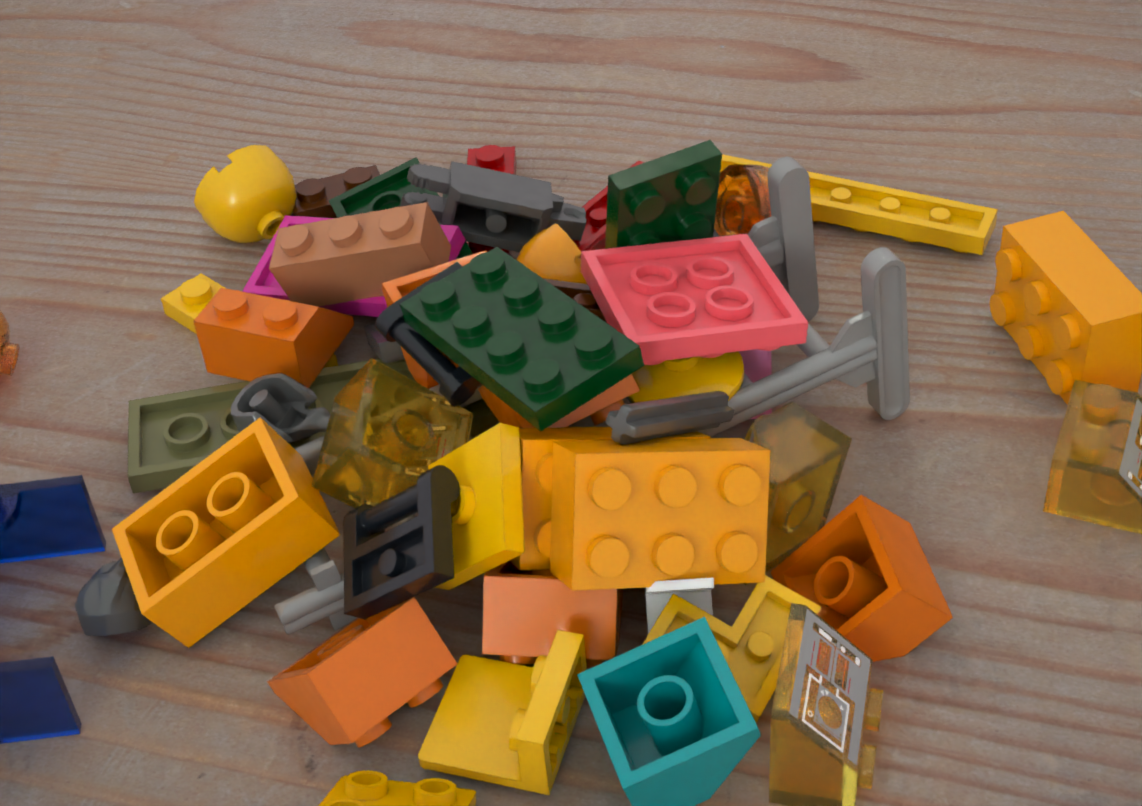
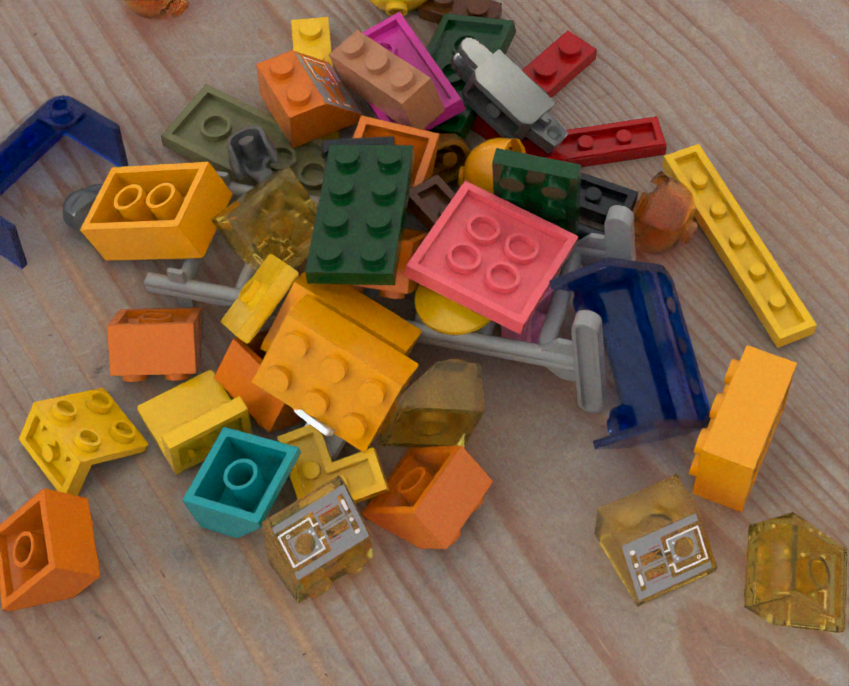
camera: 40 degrees right, 15 degrees up
(407, 559) = (204, 300): black plate -> none
(669, 417) = (390, 324): dark grey axle -> none
(949, 343) = (645, 349): none -> clear blue windscreen

